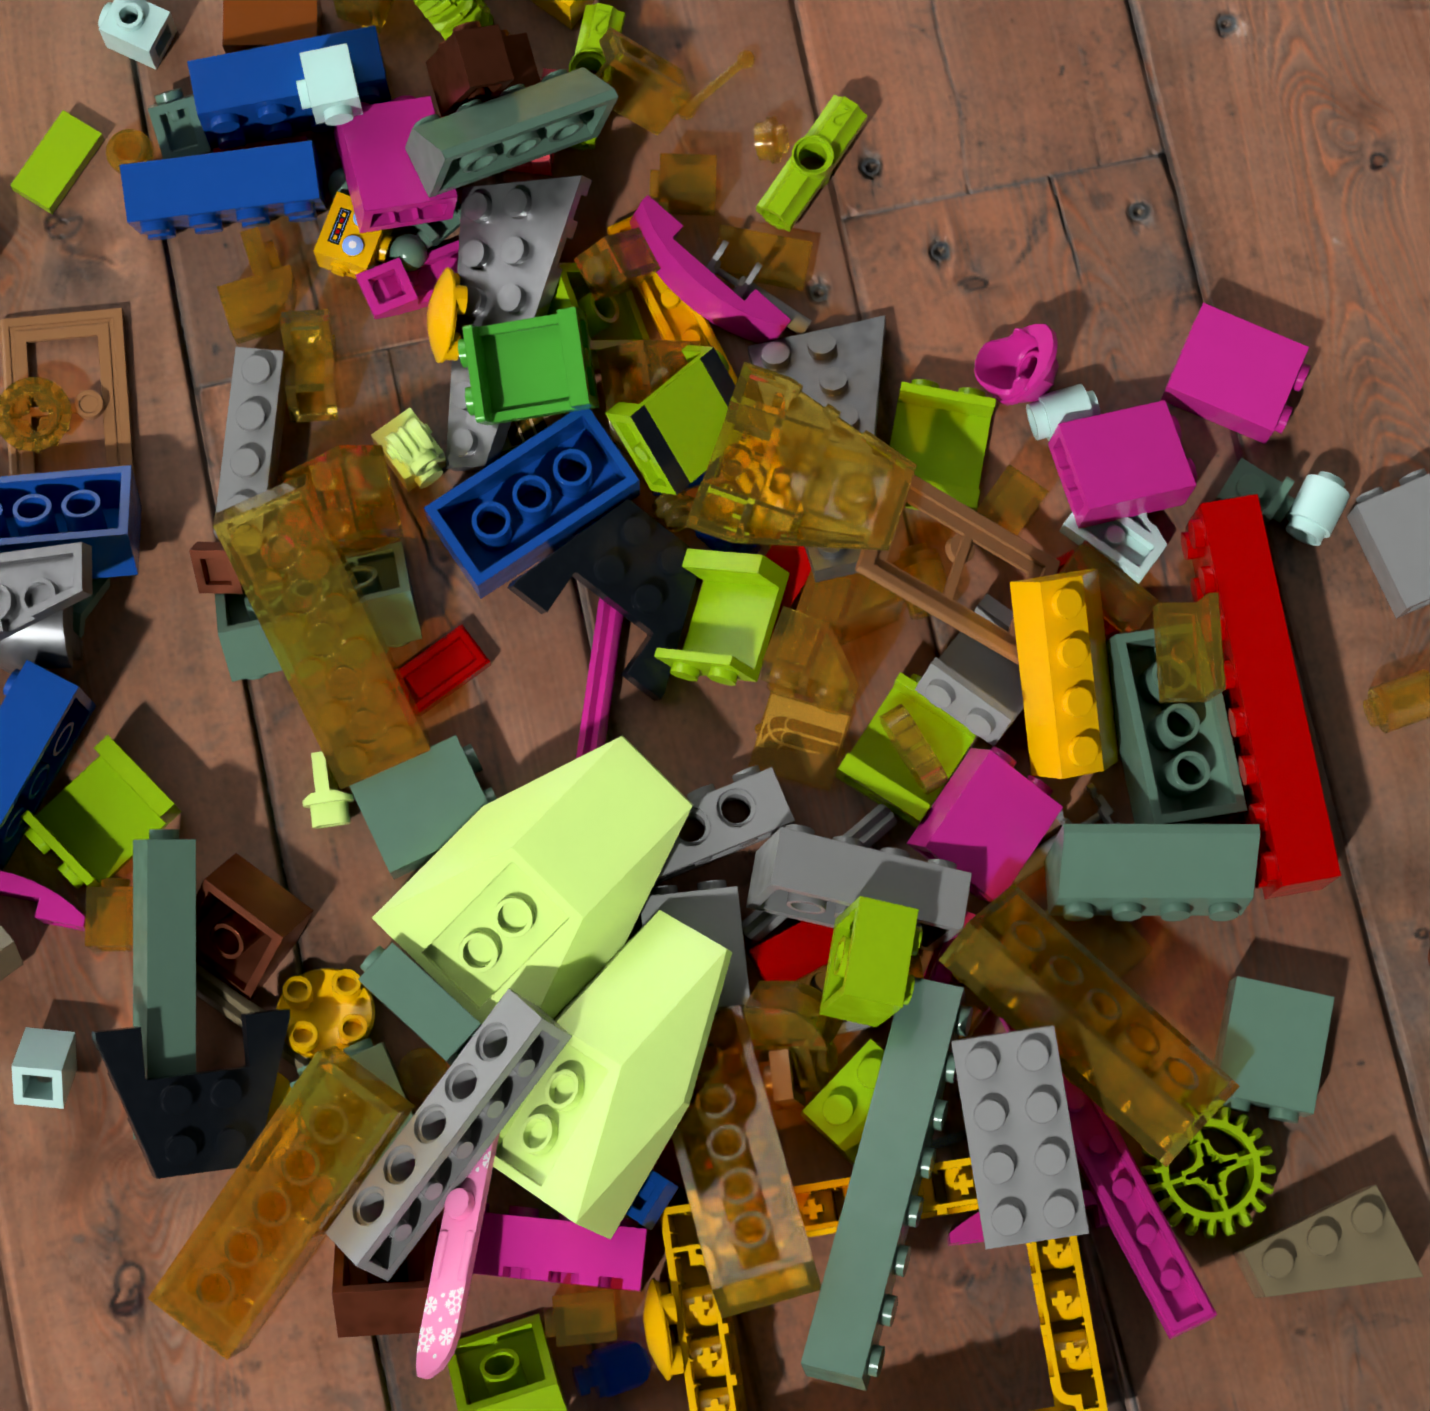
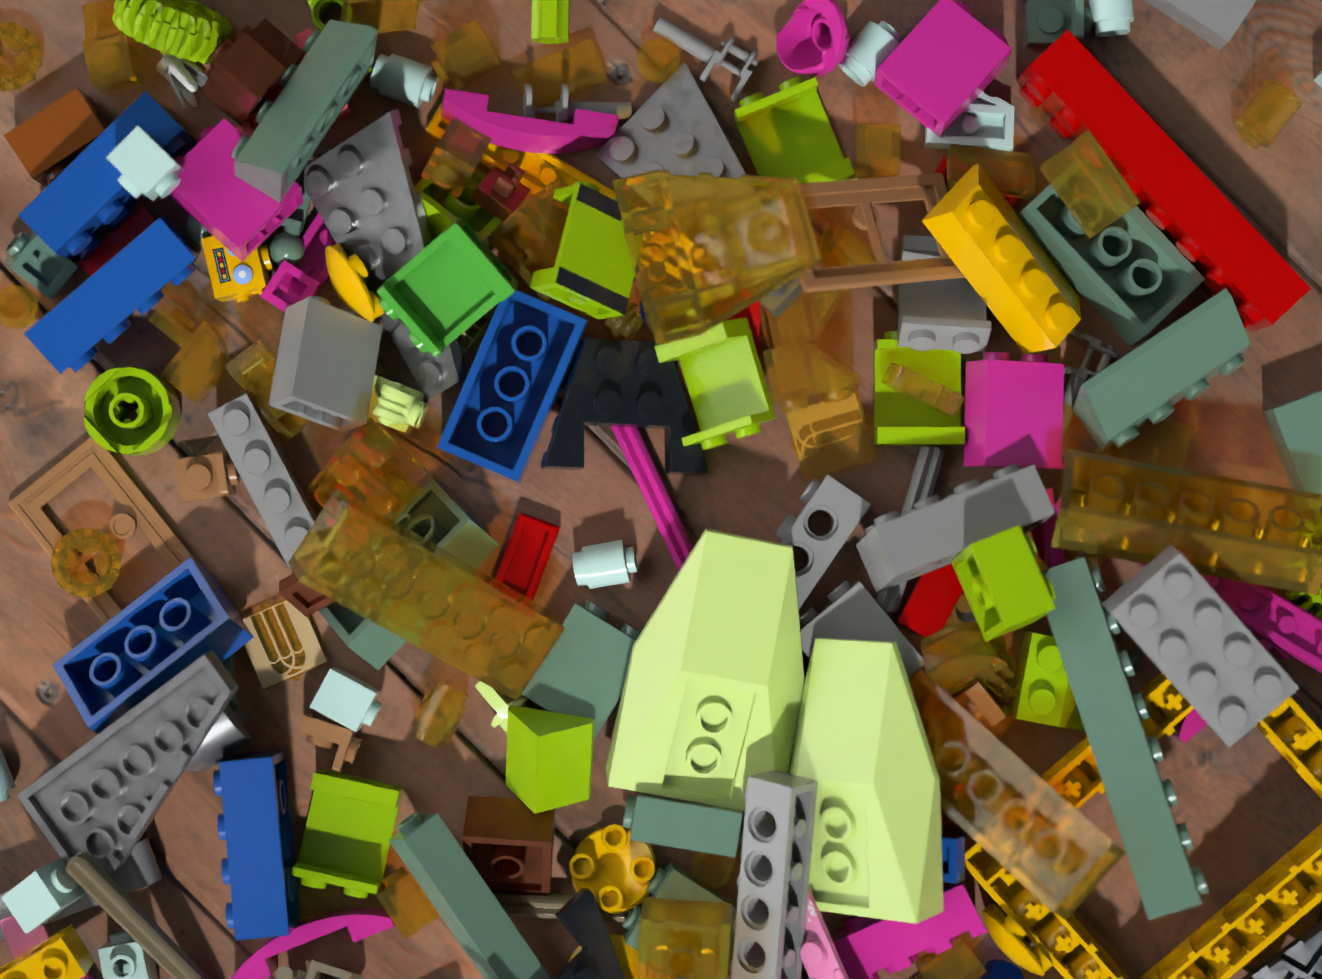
camera: 30 degrees left, 10 degrees up
(144, 299) = (107, 411): none -> lime brick
(144, 708) = (325, 731): none -> medium nougat bracket
(160, 605) = (282, 644): none -> piece
(184, 690) = (347, 699): none -> light aqua brick
(196, 409) = (206, 476): none -> medium nougat bracket
(260, 761) = (439, 714): none -> clear yellow brick
(336, 864) = (549, 757): none -> lime slope
(372, 370) = (325, 364): none -> light grey brick
(418, 43) = (183, 77): none -> flat silver piece
(508, 721) = (604, 564): none -> light aqua brick
(616, 170) = (403, 79): none -> light aqua brick
(639, 319) = (501, 191): none -> copper tile
(861, 299) = (658, 60): none -> clear yellow plate
(912, 324) = (708, 54): none -> light grey piece

